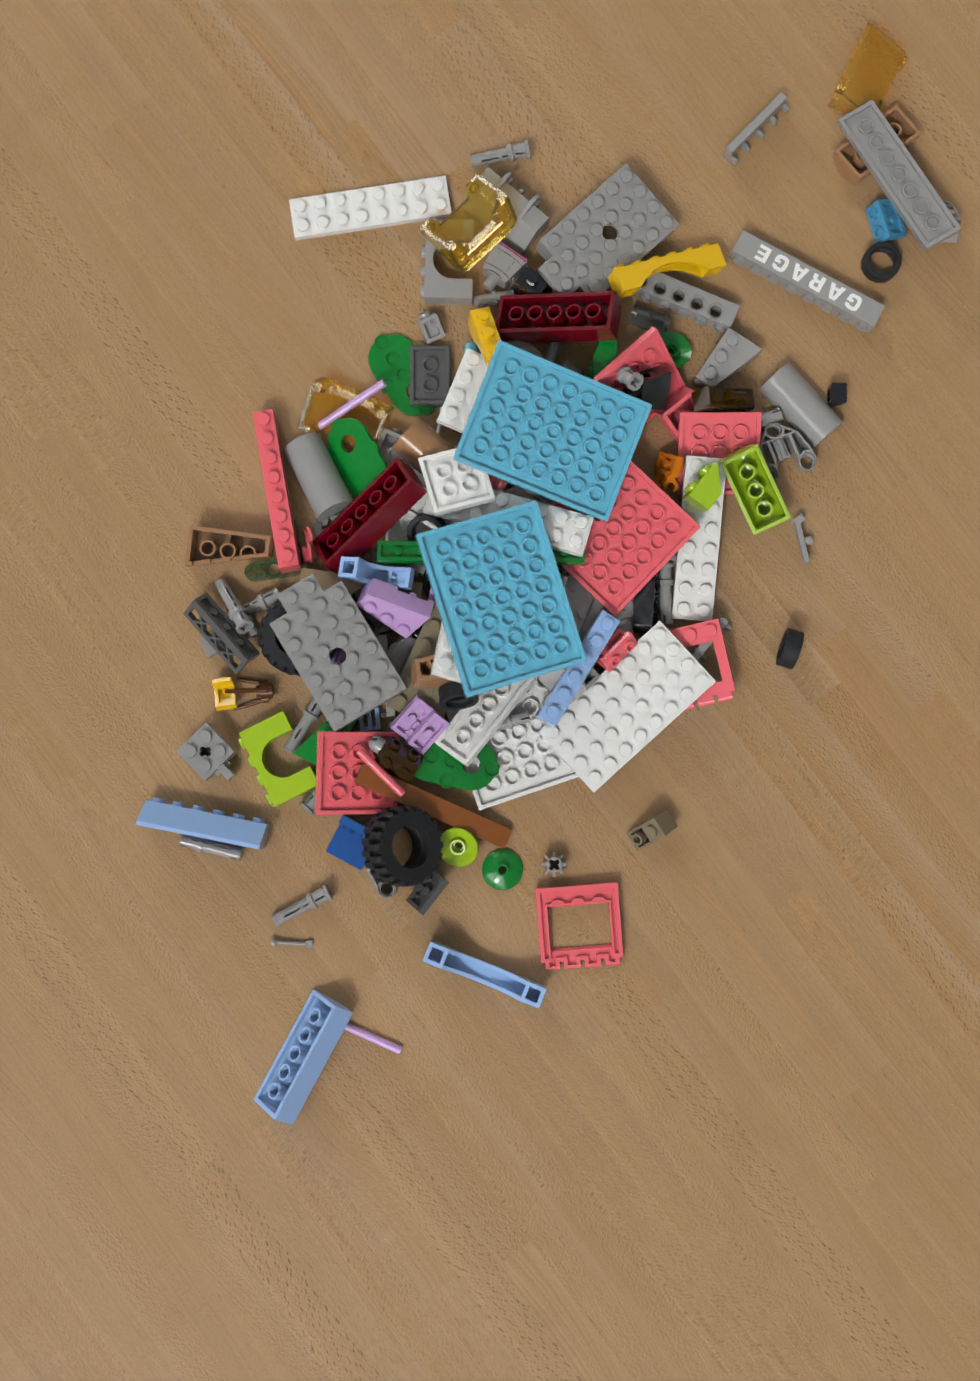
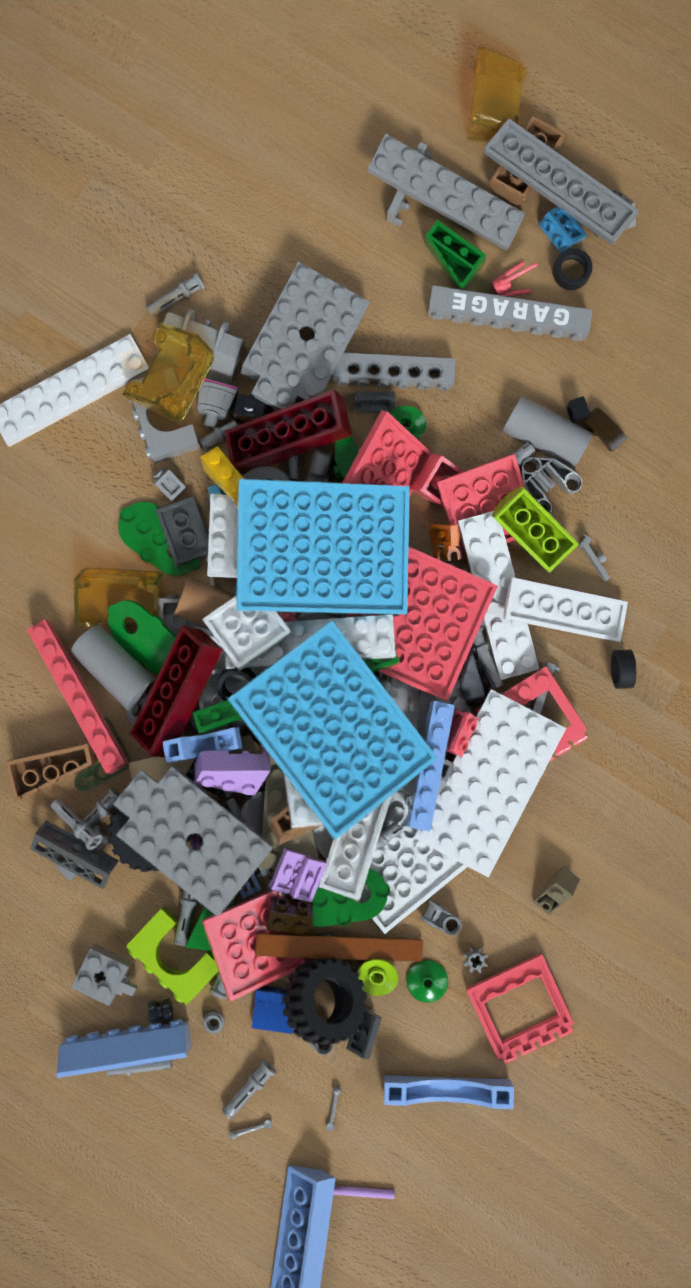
camera: 20 degrees left, 0 degrees up
(222, 700) = (98, 911): yellow bracket -> none
(248, 804) = (160, 1010): none -> black wheel
(263, 690) = (135, 894): reddish brown plant -> none
(286, 836) = (213, 1028): none -> light grey plate
(308, 552) = (129, 744): coral plate -> none
(352, 404) = (119, 586): lavender bar -> none
(365, 967) = (330, 1125): none -> light grey hinge
(376, 743) = (263, 909): light grey hinge -> none
(380, 772) = (277, 936): coral bar -> none
(453, 696) = (319, 838): black tyre -> none
(535, 814) = (440, 918): none -> light grey piece
(579, 357) = (321, 462): none -> light grey piece
(627, 377) = (382, 469): light grey bush -> none
(654, 387) = (400, 468): black torso -> none
(702, 262) = (402, 330): yellow arch -> none
(705, 489) = (489, 547): lime slope -> none
(723, 399) = (473, 454): dark brown piece -> none
(727, 359) = (461, 413): light grey wedge -> none
(756, 574) = (565, 610): none -> white plate
(775, 209) = (454, 254): none -> green wedge
(788, 148) = (445, 192): none -> light grey plate
(809, 252) = (502, 283): none -> coral plant
(856, 422) = (605, 428): none -> dark brown slope

